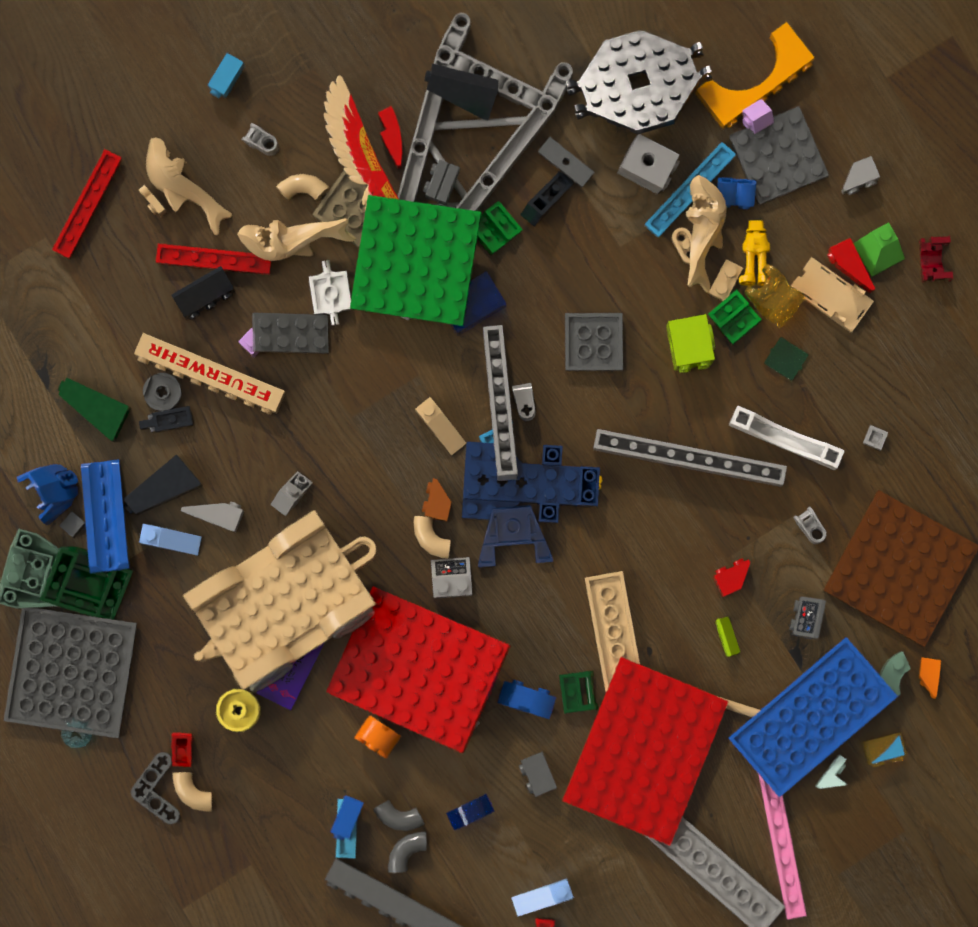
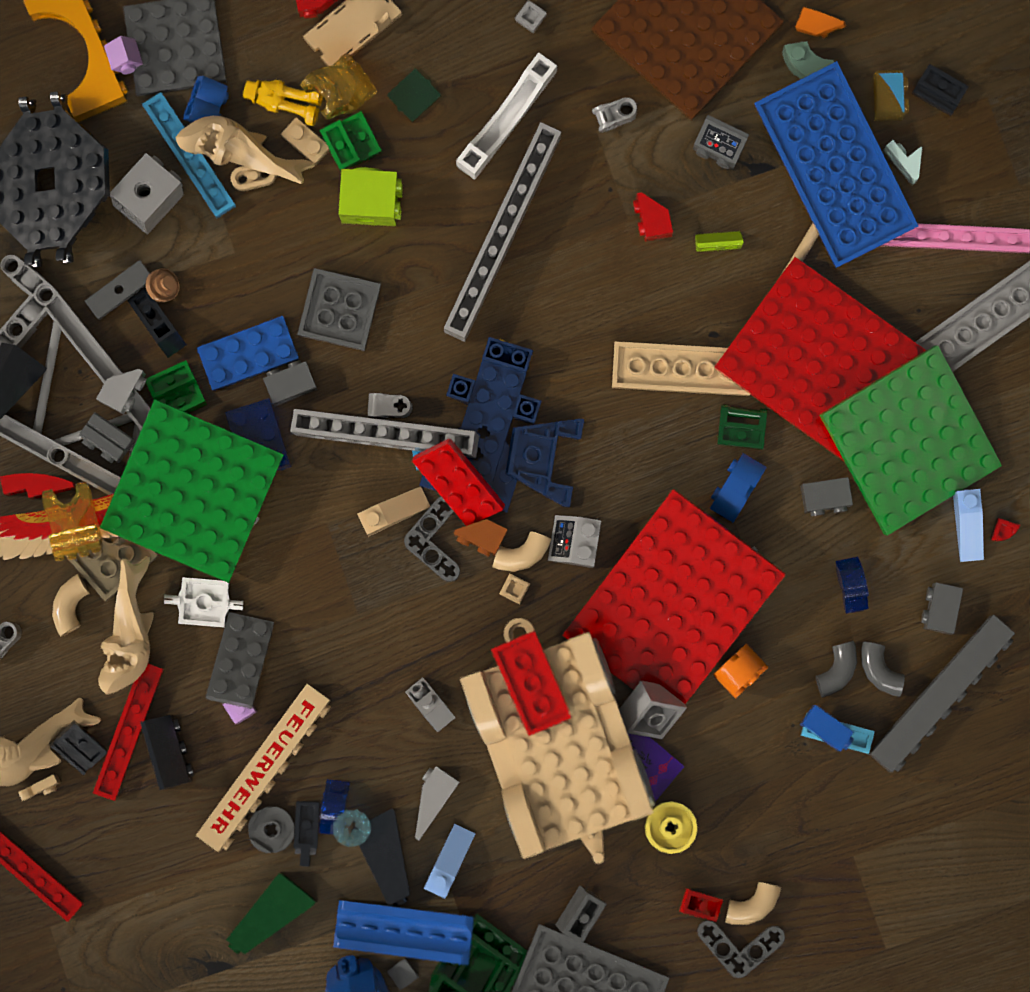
camera: 75 degrees left, 0 degrees up
(151, 654) = (580, 914): none -> dark grey brick
(171, 460) = (357, 836): none -> clear light blue gear
(191, 223) = (78, 747): none -> black plate
(191, 437) = (333, 804): none -> clear blue brick
(324, 568) = (531, 683): none -> red plate
(327, 671) = (651, 710): none -> light grey slope
(365, 174) = (73, 524): none -> clear yellow piece
(401, 539) = (514, 589): none -> tan tile
(427, 457) = (426, 535): none -> dark grey beam
(468, 890) = (942, 608): none -> dark grey brick
(474, 471) = (458, 482): none -> red plate
(482, 183) = (120, 390): none -> light grey slope
(523, 317) = (289, 383): none -> dark grey brick
(540, 277) = (247, 353): none -> blue plate
(578, 195) = (162, 285): none -> medium nougat plate
(599, 832) = (910, 440): none -> green plate
(899, 790) = (940, 90): none -> black plate

